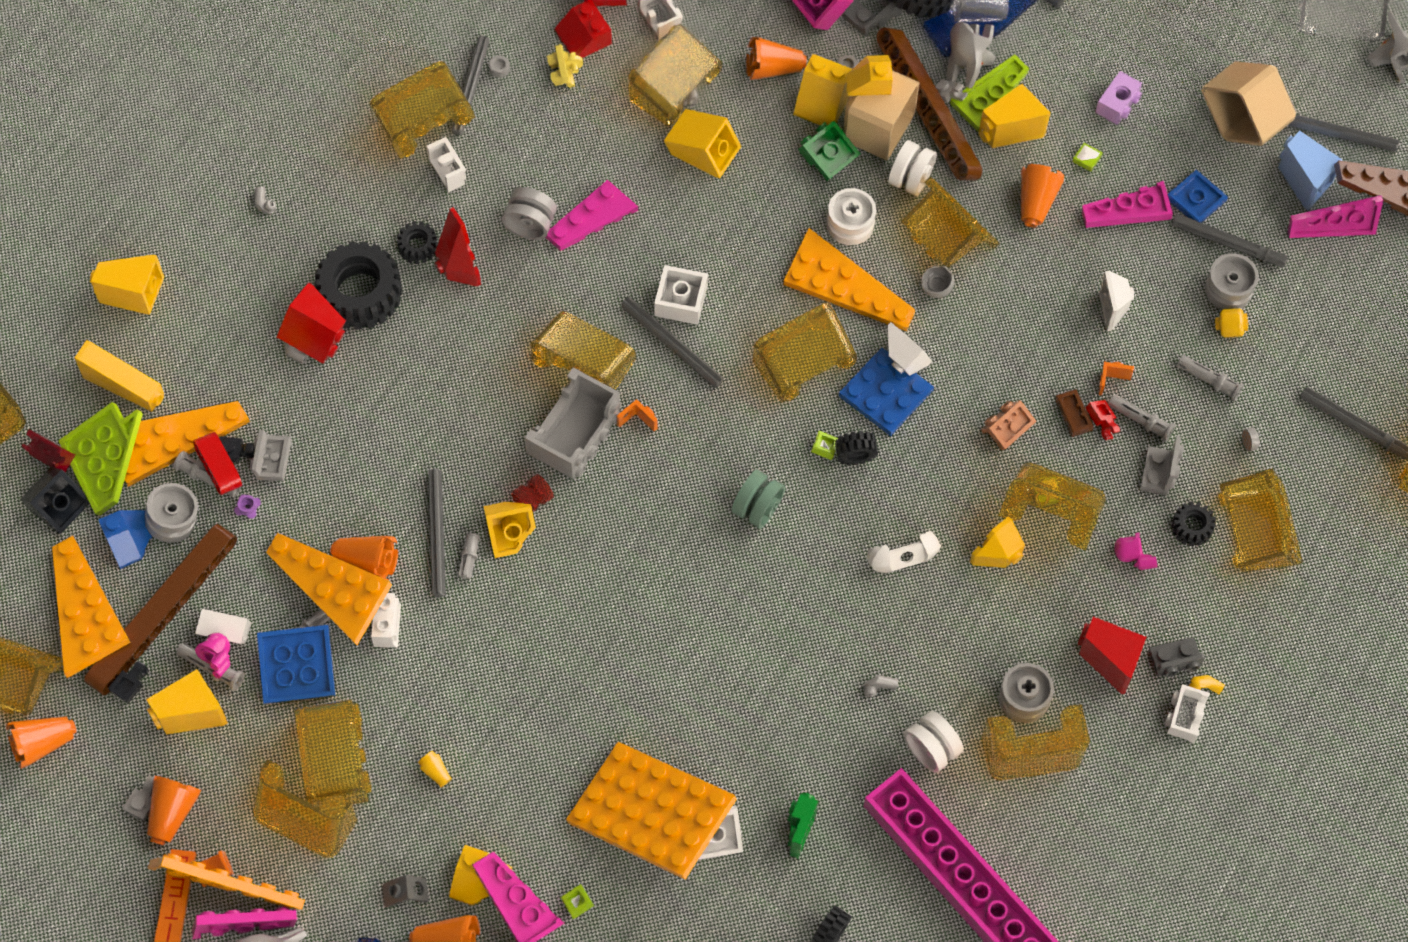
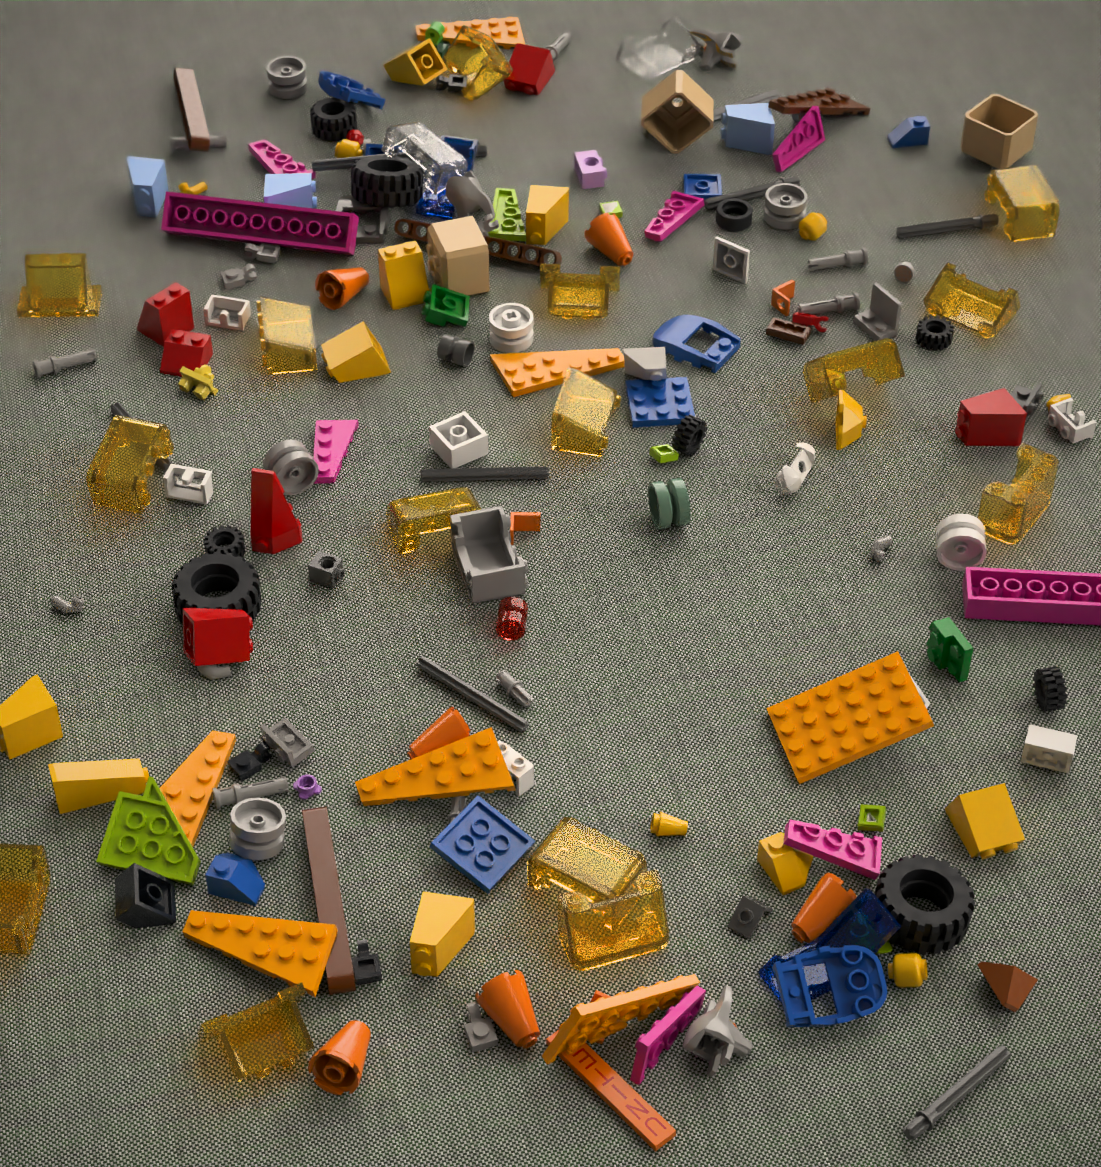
camera: 45 degrees left, 20 degrees down
(48, 451) = (97, 870): dark red hinge -> none
(215, 652) = (413, 881): dark pink piece -> none
(217, 463) = (254, 769): red beam -> none
(230, 677) = (385, 908): light grey pin -> none
(233, 627) = (392, 867): white hinge -> none
(457, 322) = (326, 569): none -> dark grey brick
(499, 66) = (147, 413): light grey tile -> none
(508, 526) = (520, 648): yellow slope -> none
(783, 202) = (456, 350): none -> dark grey wheel
(870, 77) = (441, 226): yellow slope -> none
(912, 168) = (517, 275): white wheel -> none
(937, 281) = (613, 323): light grey hair -> none
(984, 334) = (680, 328): none -> blue slope
(1009, 423) = (758, 361): nougat bracket -> none
(1026, 692) = (969, 477): light grey wheel -> none
(1130, 549) = (922, 368): dark pink piece -> none
(1184, 237) = (733, 223): none -> black tyre

